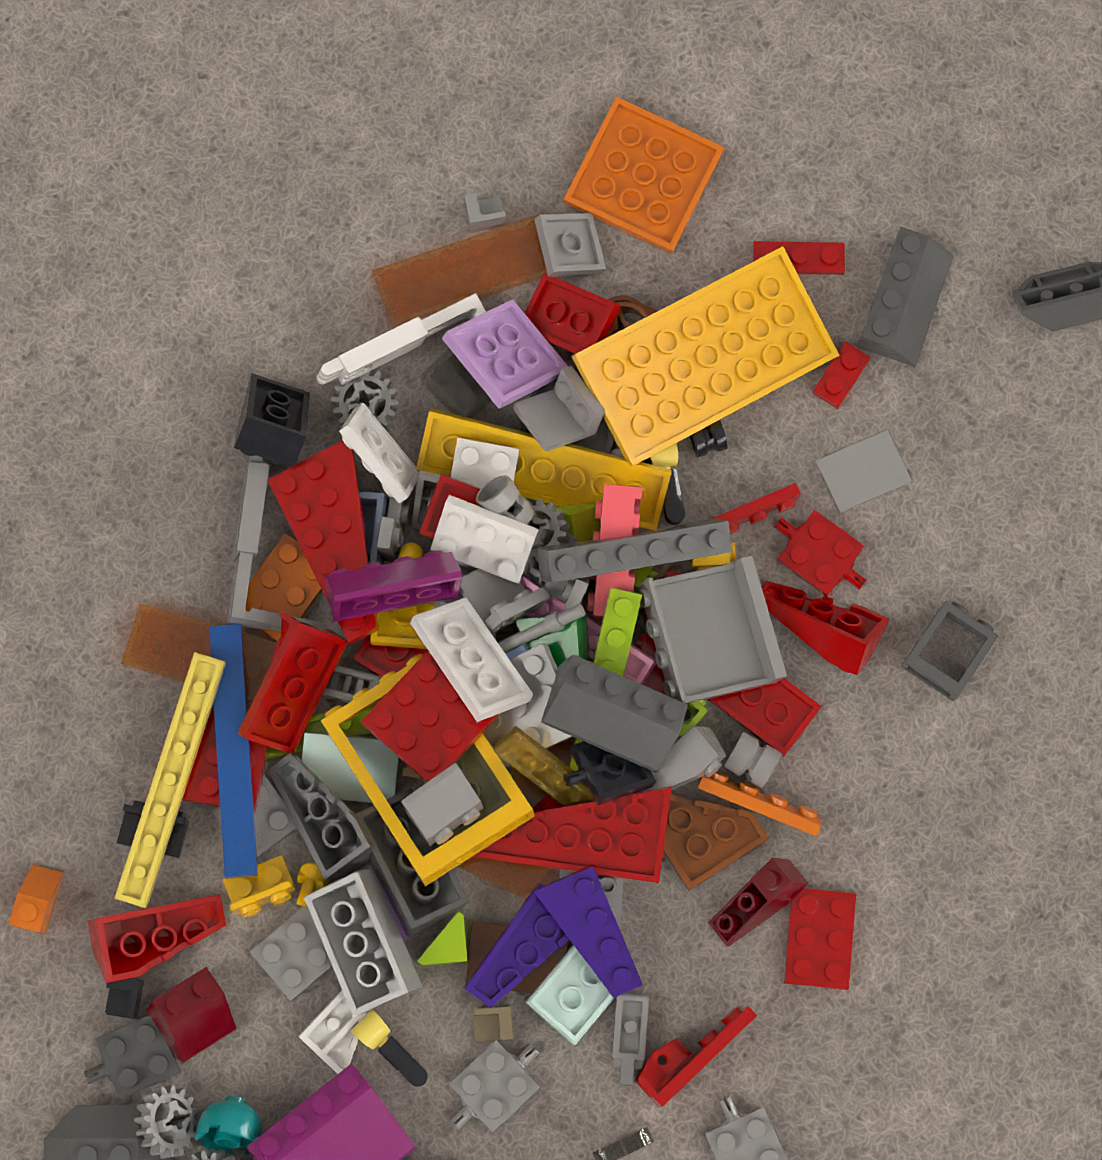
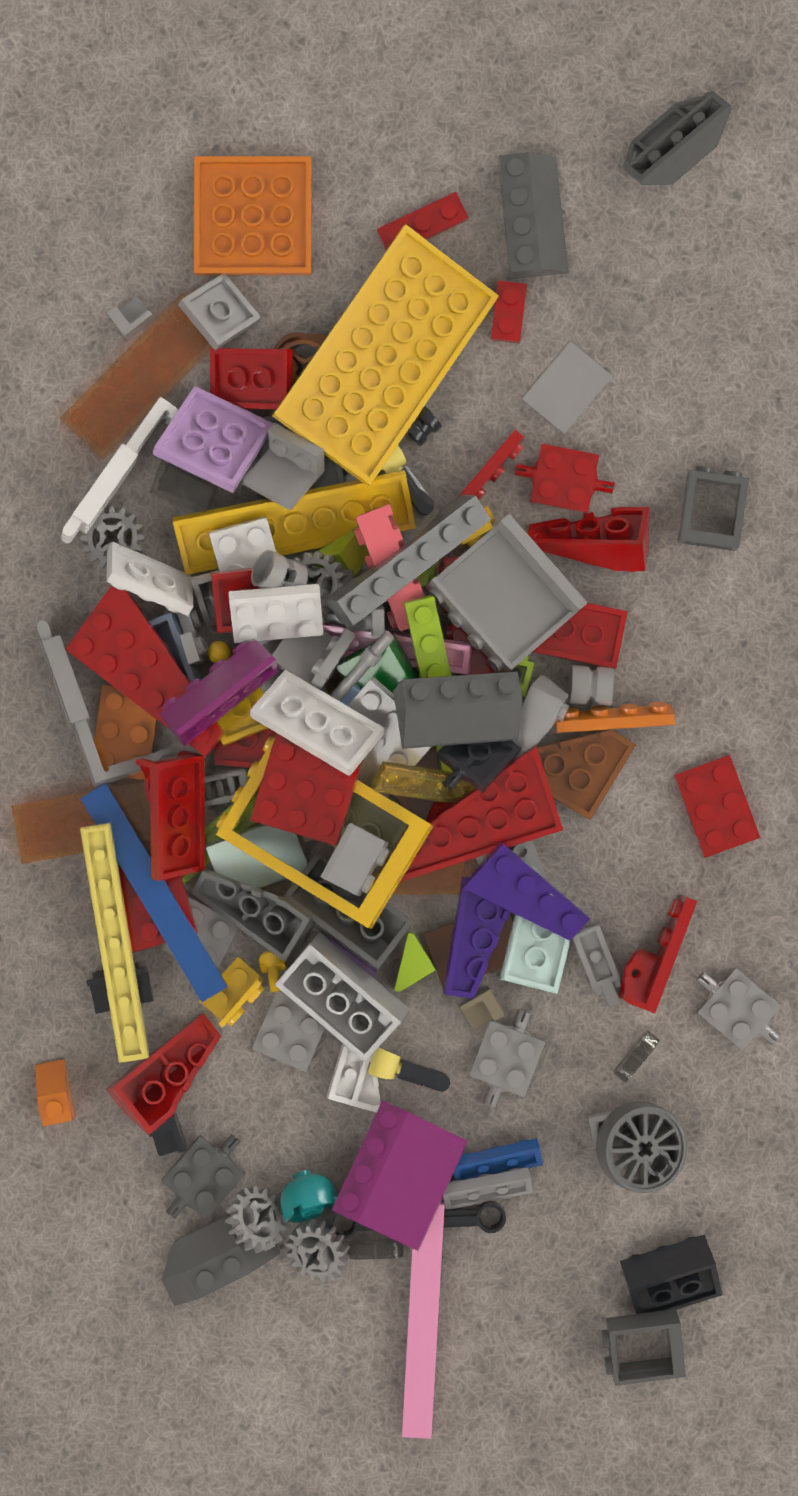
camera: 20 degrees left, 10 degrees up
(192, 1015) = (232, 1124): dark red slope -> none
(273, 421) = (43, 595): black slope -> none
(758, 900) = (651, 800): dark red slope -> none

